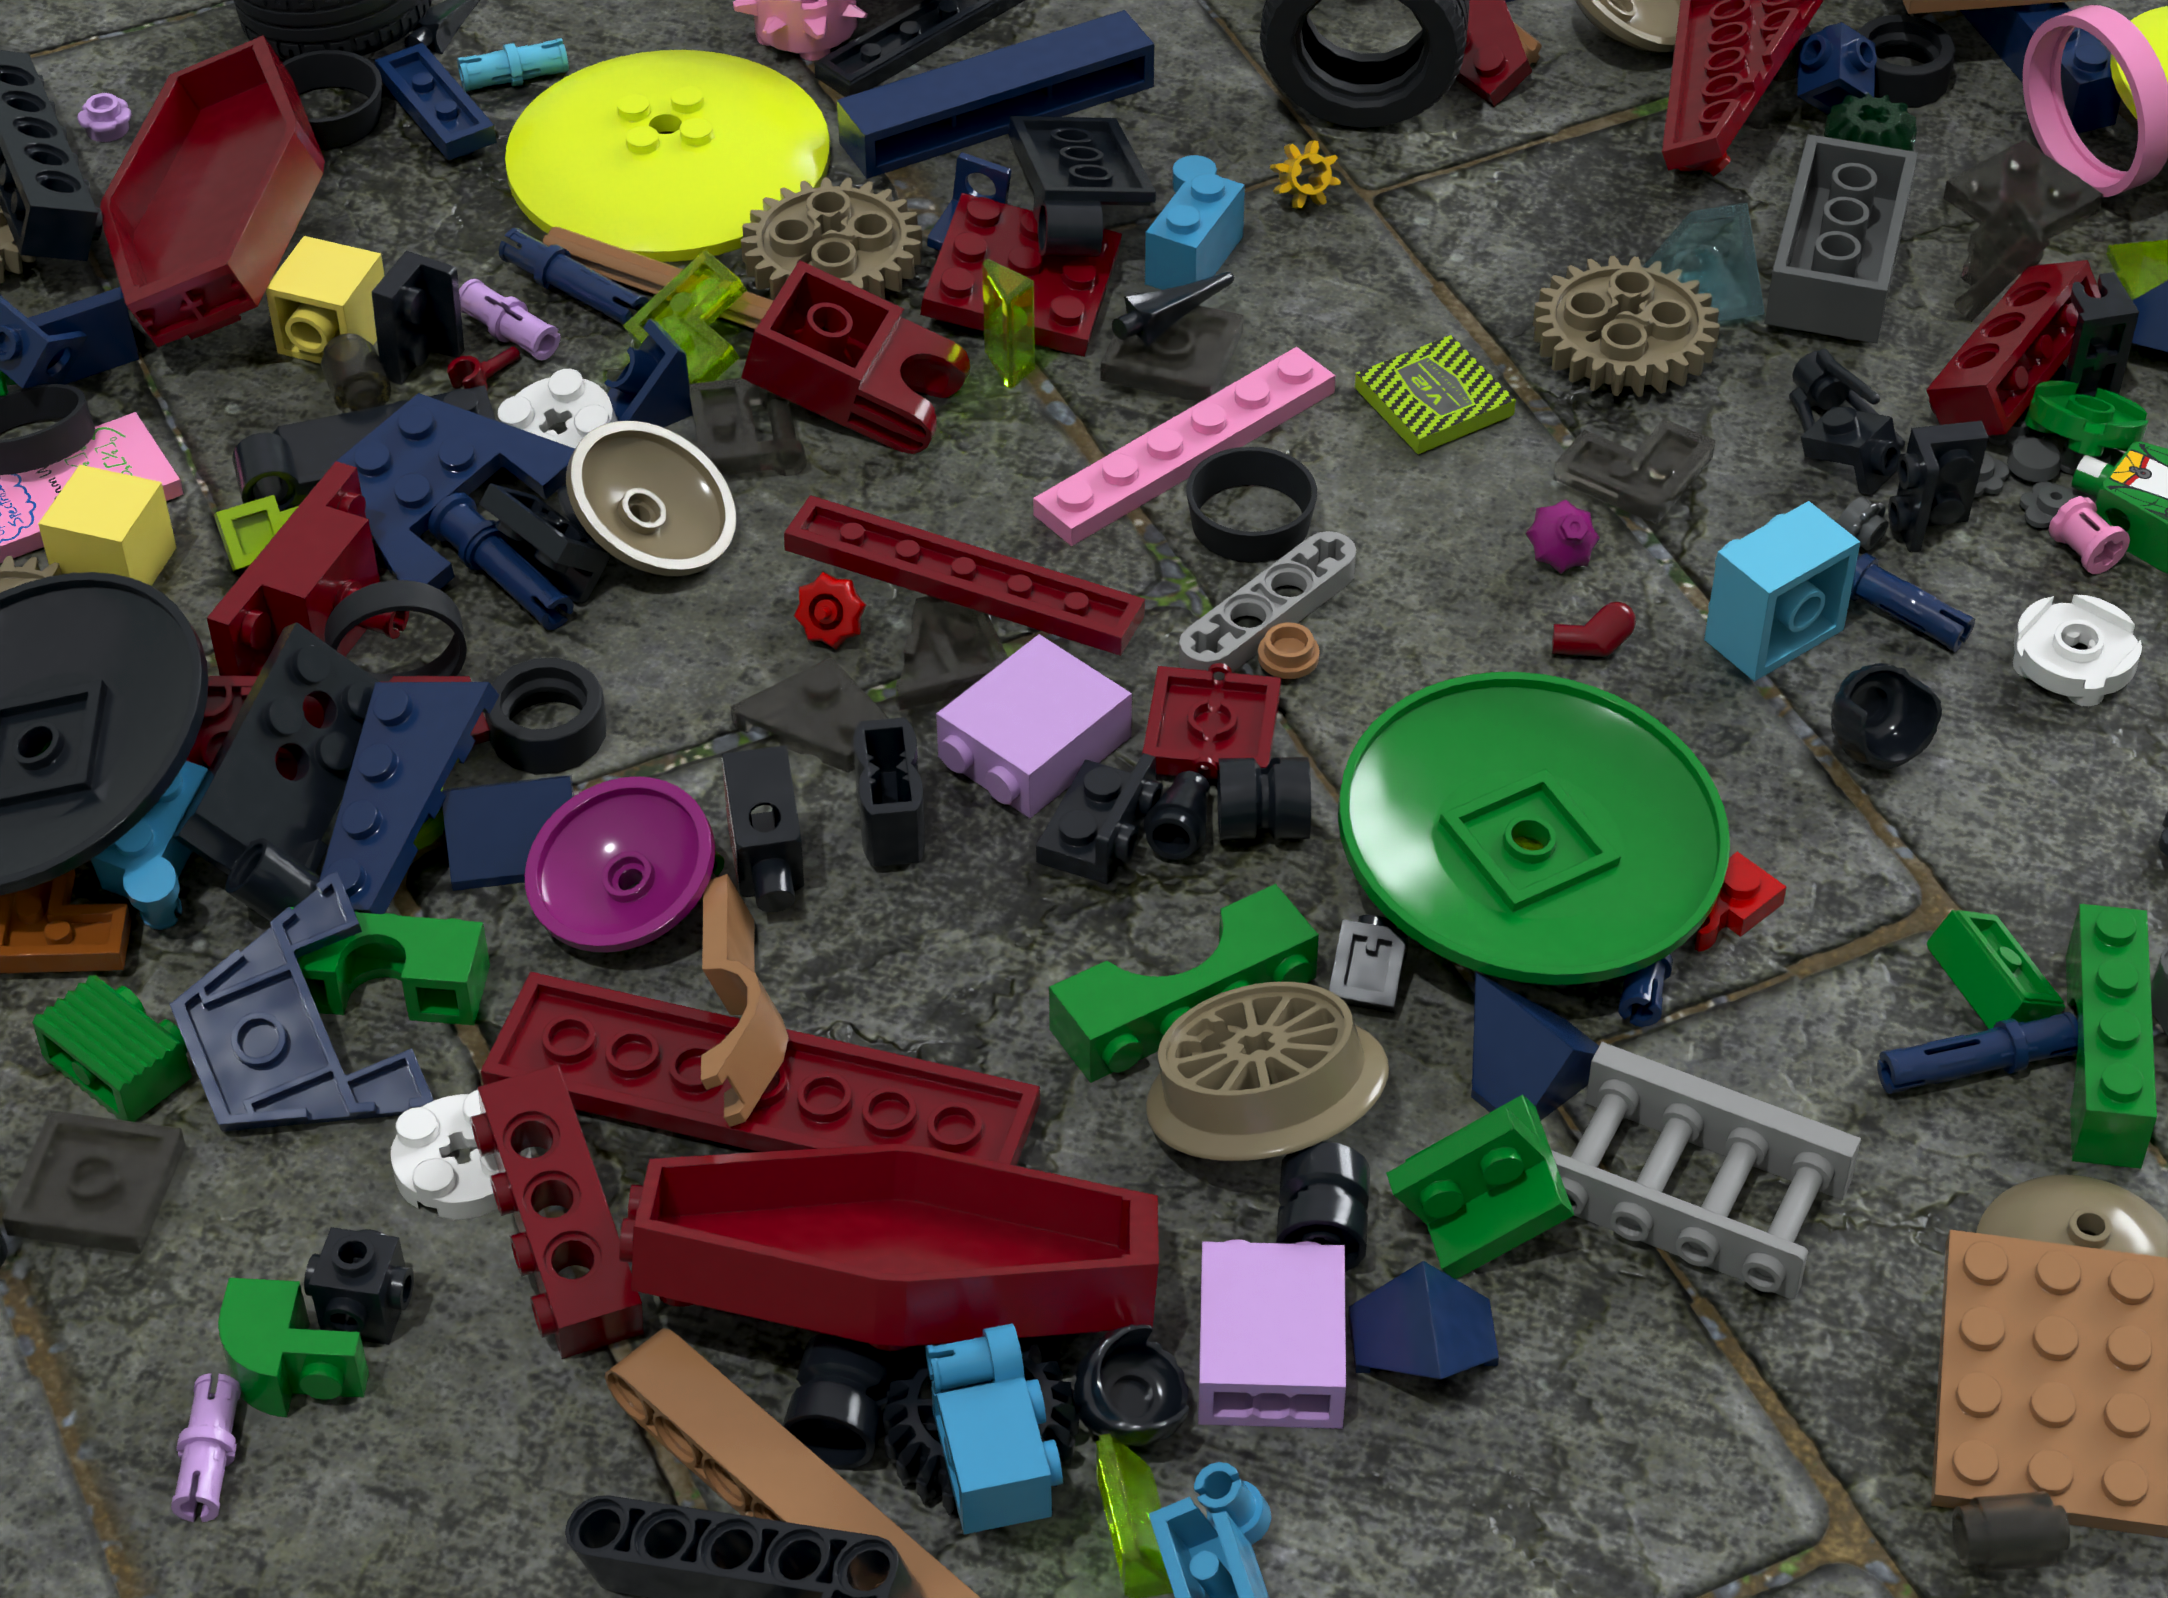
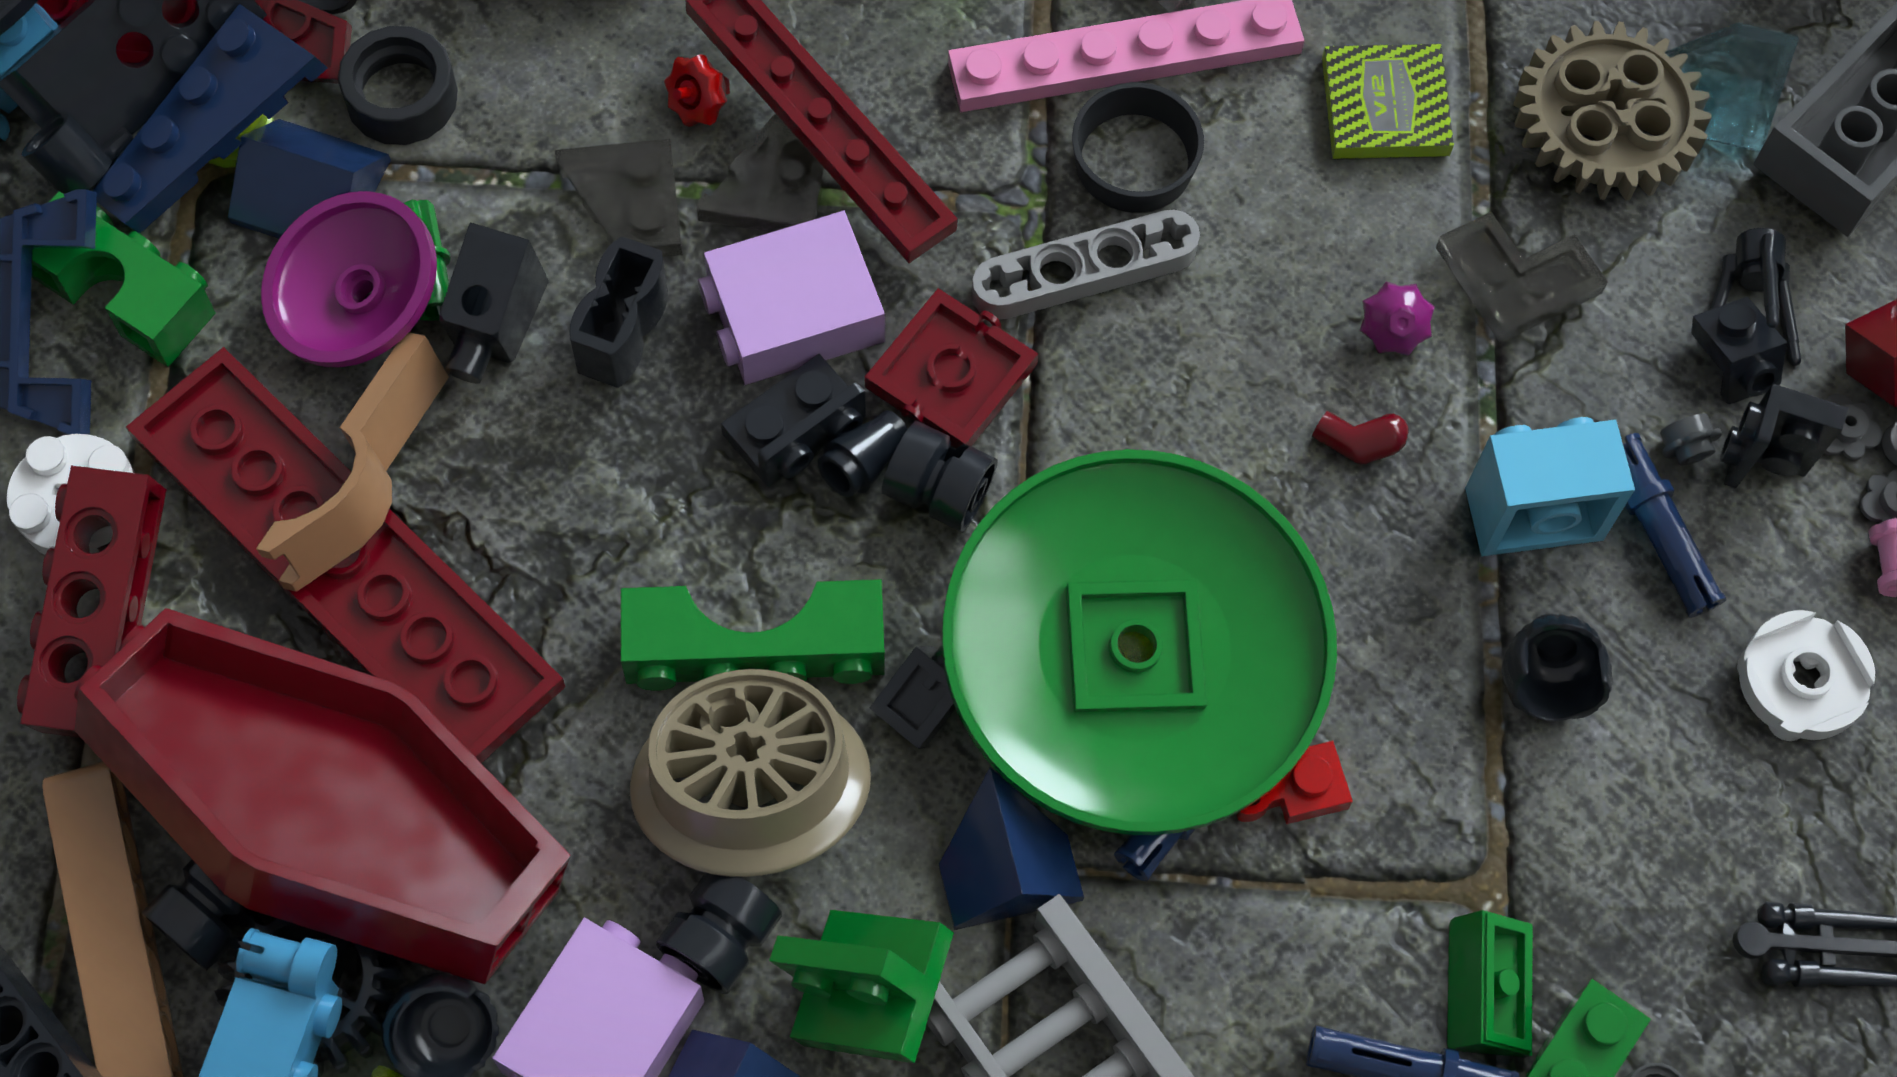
camera: 25 degrees right, 20 degrees up
(1288, 651) = (1070, 324): medium nougat plate -> none

